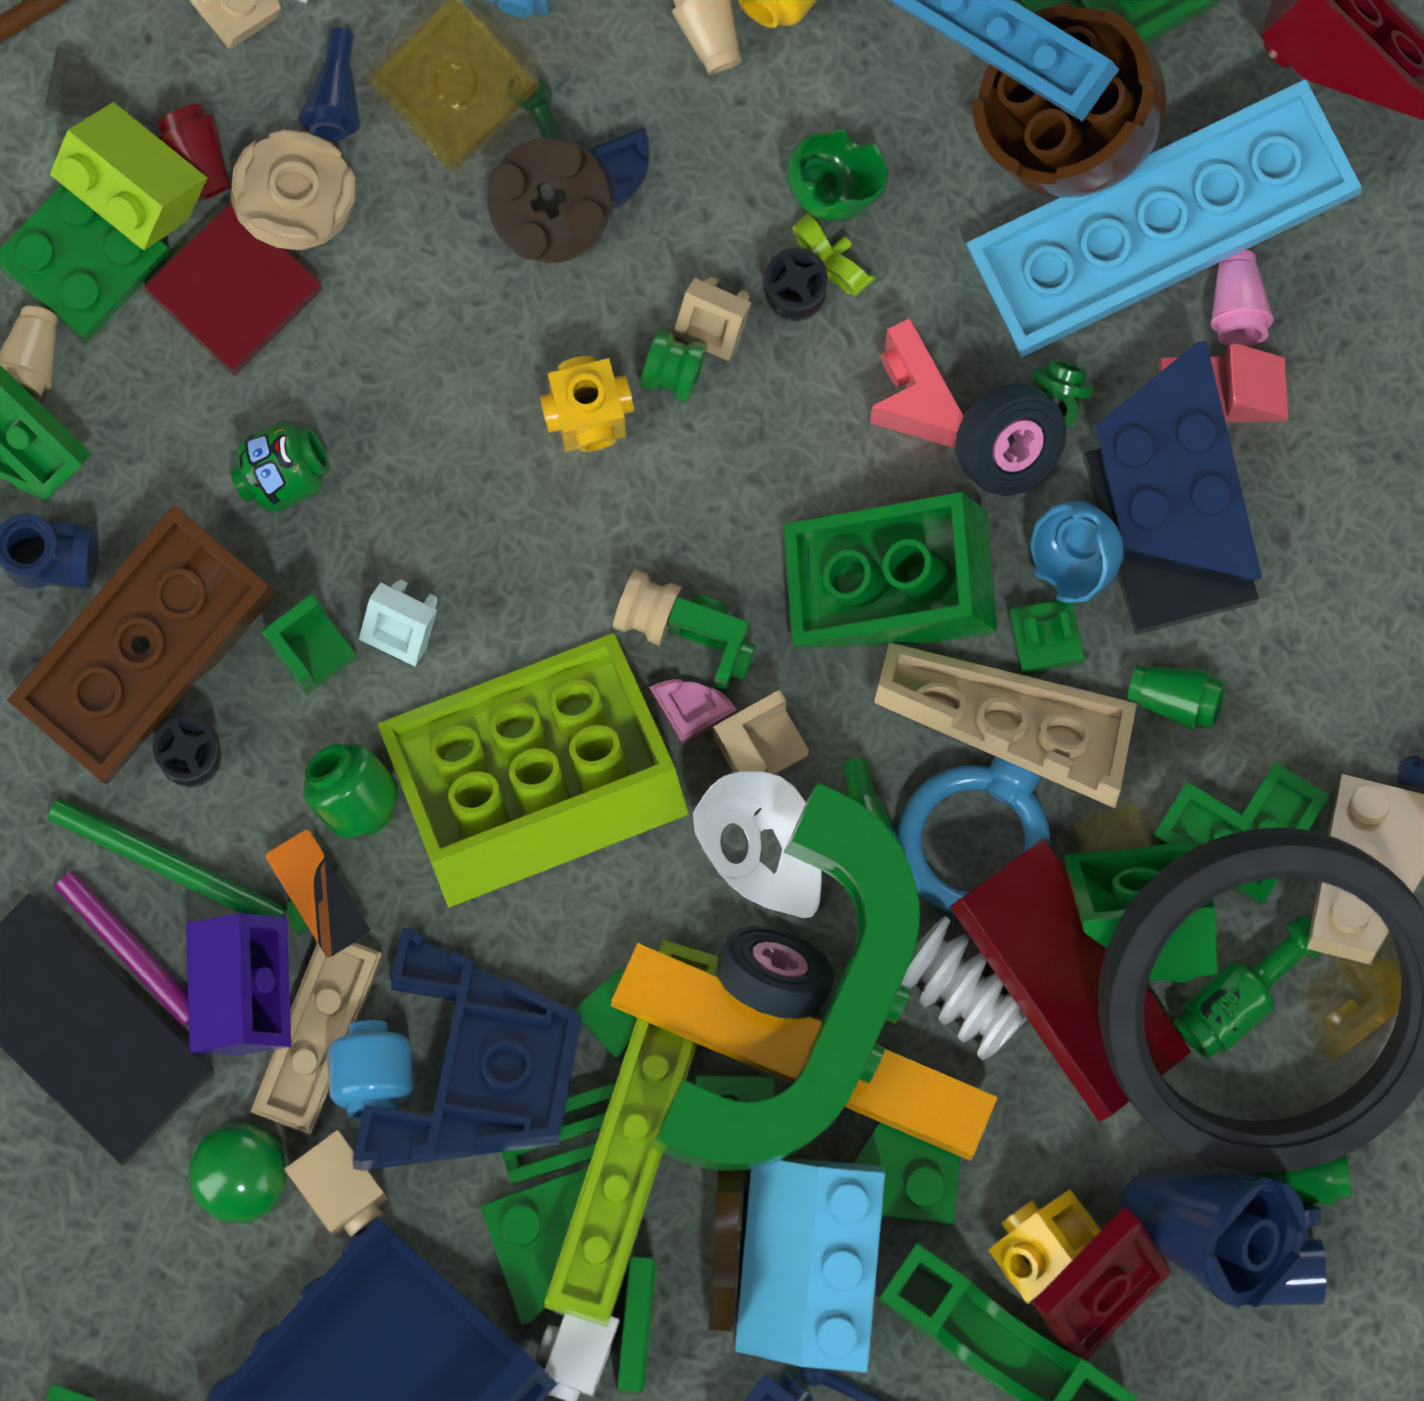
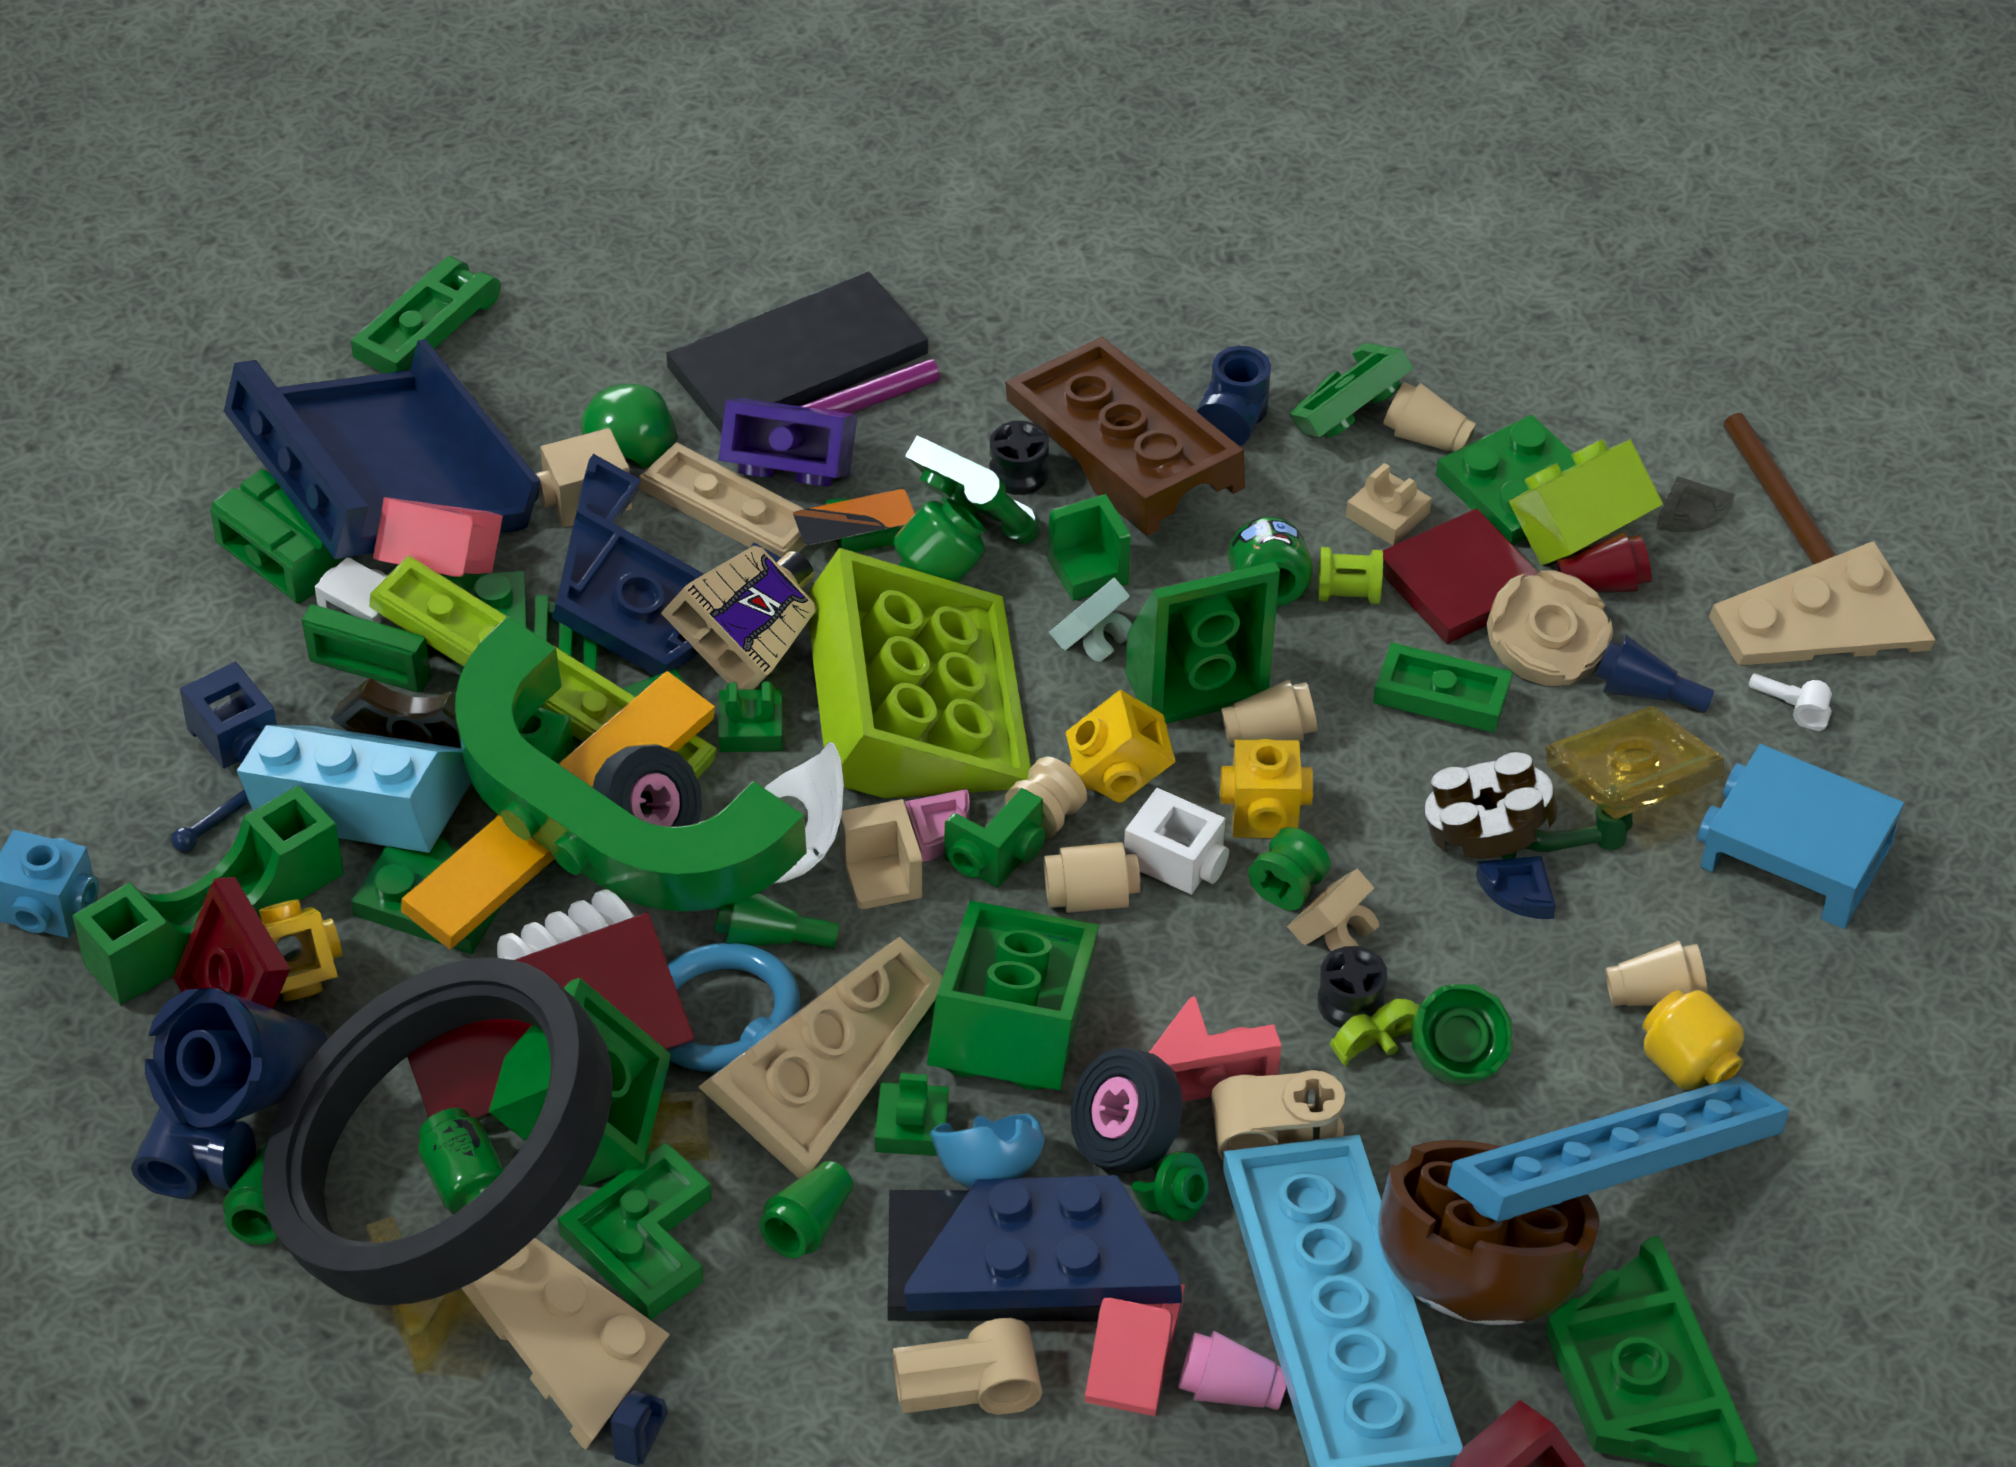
camera: 105 degrees right, 30 degrees down
(154, 376) = (1388, 505): none -> tan tile
(162, 860) = (930, 429): green bar -> none
(272, 387) = (1350, 575): none -> lime bush
(275, 788) = (973, 488): none -> green plate
(370, 1068) = (676, 514): dark azure head -> none
(398, 274) = (1442, 687): none -> green plate
(437, 493) = (1204, 642): none -> green slope
(480, 424) = (1272, 714): none -> tan cone
(495, 1288) = (438, 536): none -> coral slope
(504, 948) = (745, 613): none -> tan torso
(579, 548) = (1120, 746): none -> yellow brick
(610, 921) = (750, 719): none -> green tile
(669, 447) = (1177, 841): none -> white brick
(734, 542) = (1091, 877): none -> tan brick
(968, 326) = (1275, 1109): none -> tan piece
(1299, 497) = (987, 1368): none -> tan piece

